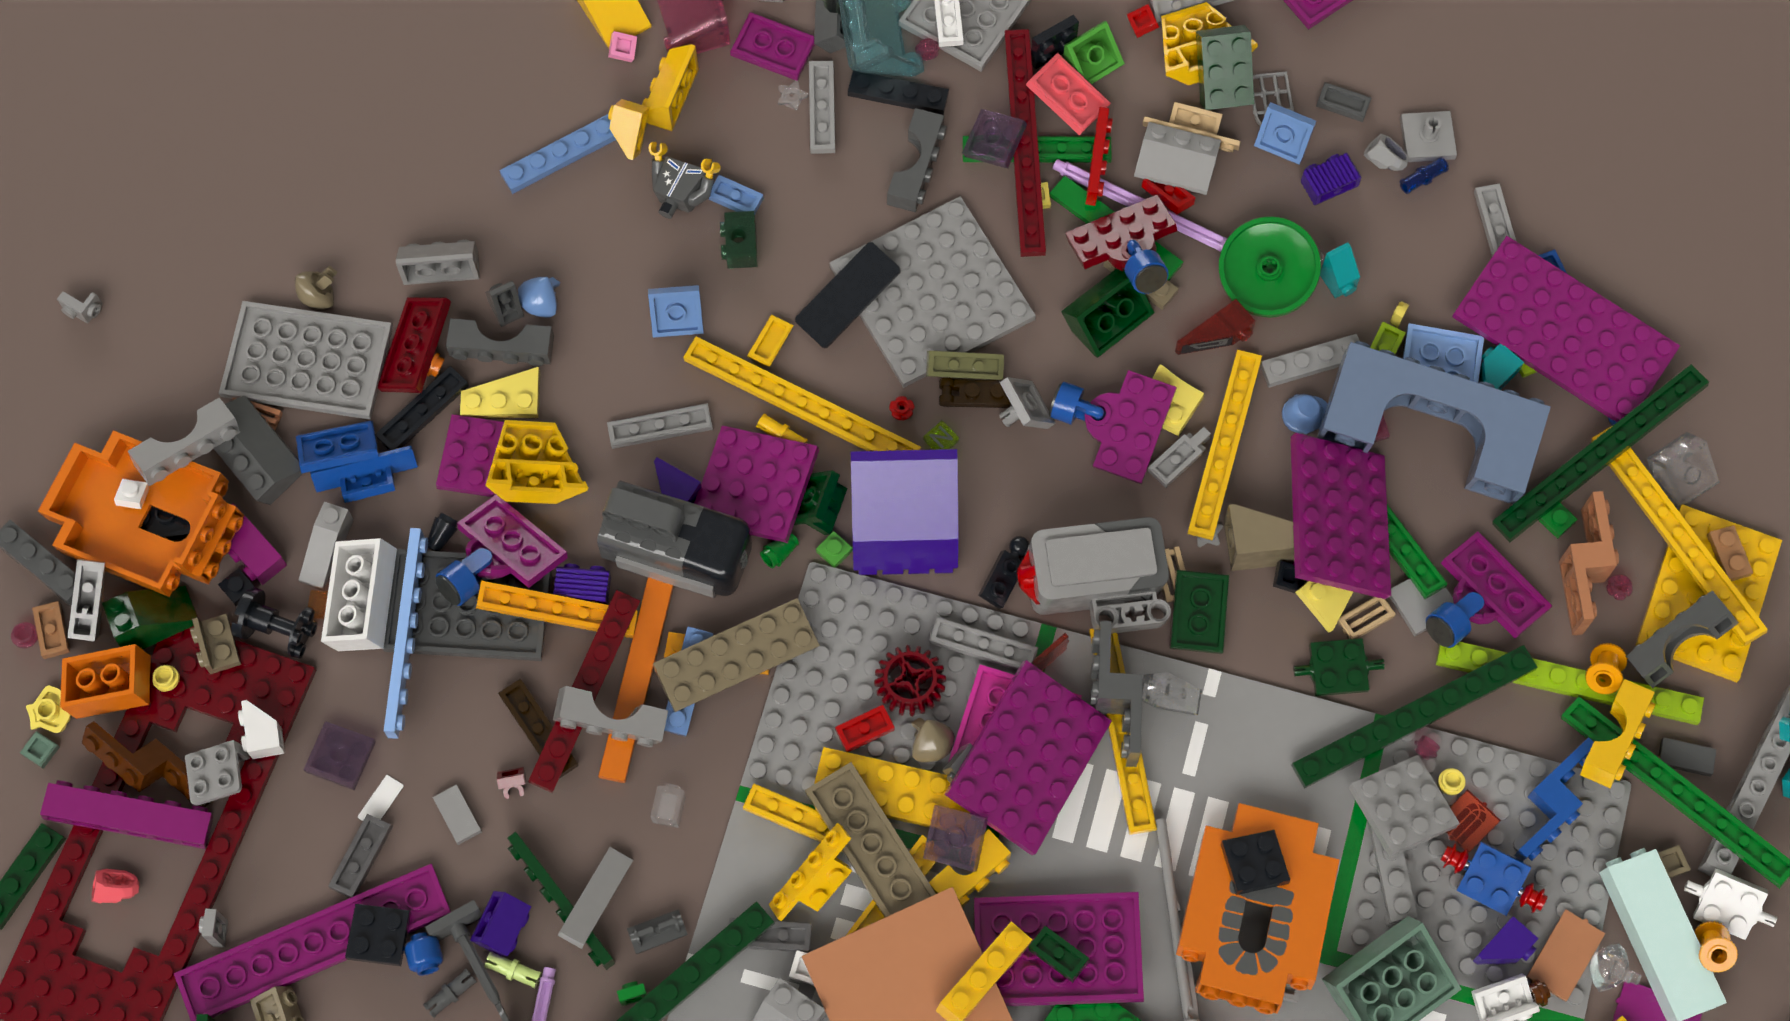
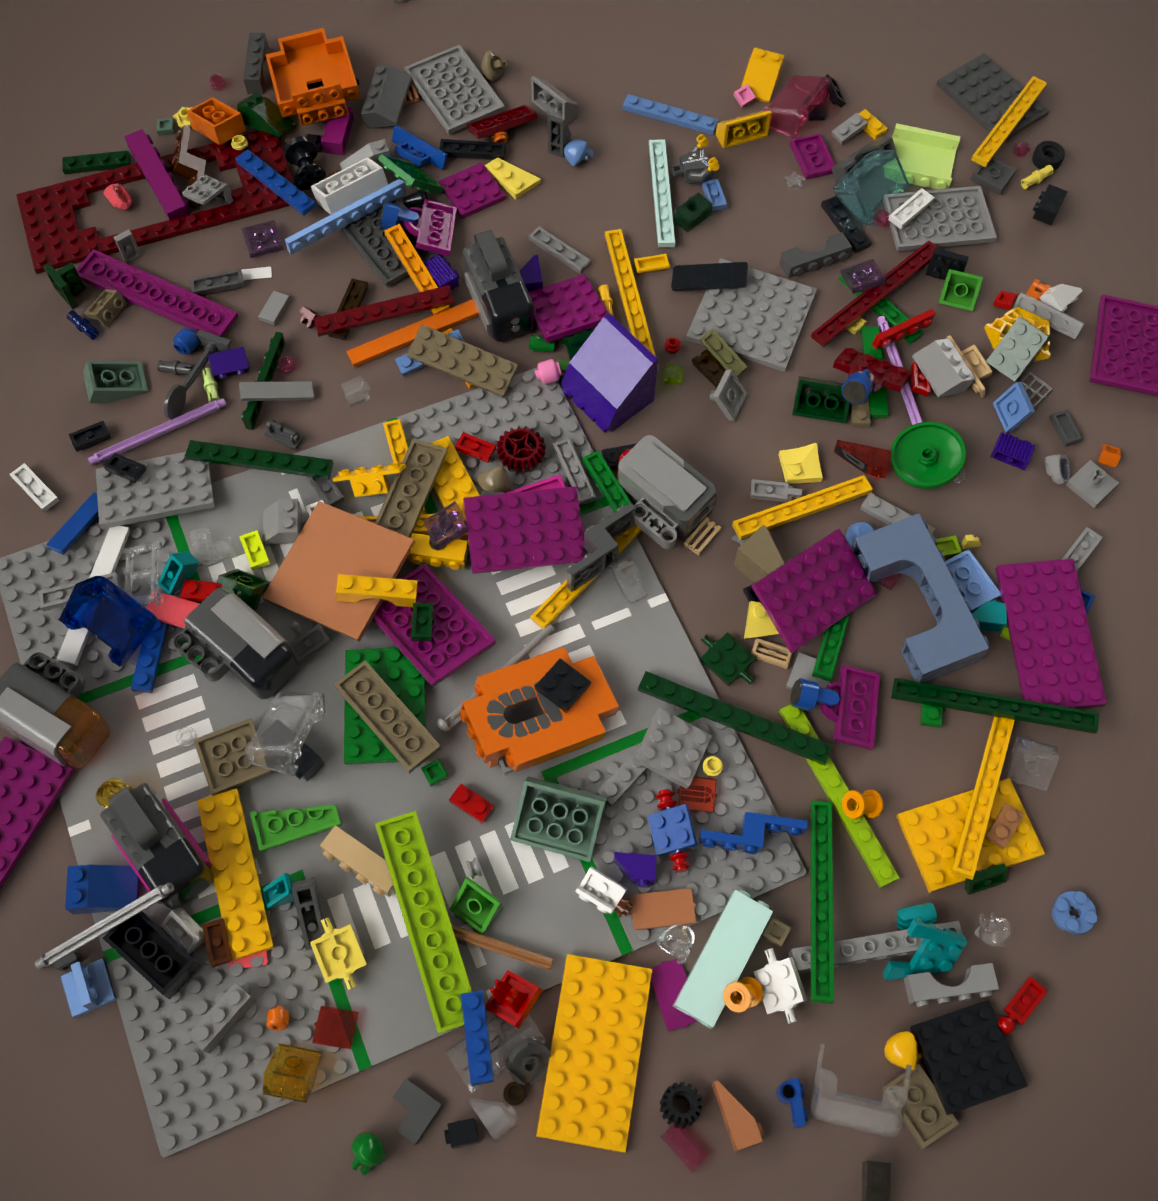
camera: 50 degrees right, 5 degrees down
(51, 630) = (228, 88): medium nougat plate -> none
(87, 600) = (249, 83): light grey slope -> none
(131, 494) = (318, 65): white plate -> none
(159, 459) = (375, 65): light grey arch -> none
(216, 643) = (272, 148): dark tan bracket -> none
(262, 732) = (242, 195): white slope -> none
(269, 678) = (275, 182): none -> blue plate
(337, 446) = (419, 127): blue tile -> none
(378, 935) = (179, 314): black plate -> none
(411, 511) = (411, 174): none -> green plate
(530, 346) = (548, 166): dark grey arch -> none
(533, 465) = (482, 205): yellow wedge -> none
(557, 858) = (286, 364): none -> clear pink plate
(577, 708) = (388, 346): light grey arch -> none
(628, 126) = (702, 122): yellow slope -> none
(631, 993) = (239, 442): green plate -> none
(675, 311) = (624, 209): medium blue tile -> none
(681, 250) = (661, 193): none -> light aqua plate
(821, 107) = (801, 197): light grey plate -> none
(832, 571) = (548, 371): none -> bright pink head
(1031, 621) = (606, 480): none -> green plate
(1051, 652) = (594, 502): clear red piece -> none
(1068, 93) = (925, 292): coral tile -> none
(1122, 422) = (764, 448): magenta plate -> none
(1199, 612) = (692, 563): dark green tile -> none
(1340, 271) = (962, 491): teal slope -> none
(1410, 89) = (1109, 455): none -> orange slope
(1424, 175) = (1066, 496): clear blue pin -> none
(1426, 747) = (720, 737): clear pink plate -> none
(1588, 562) = (918, 747): nougat bracket -> none
(1606, 757) = (801, 839): yellow arch -> none
(1624, 582) = (926, 775): clear pink plate -> none
(1655, 655) = (896, 826): dark grey arch -> none
(1687, 756) = (853, 895): dark grey tile -> none
(1754, 715) = (924, 911): none -> teal arm
(1768, 610) = (986, 879): none -> dark green plate

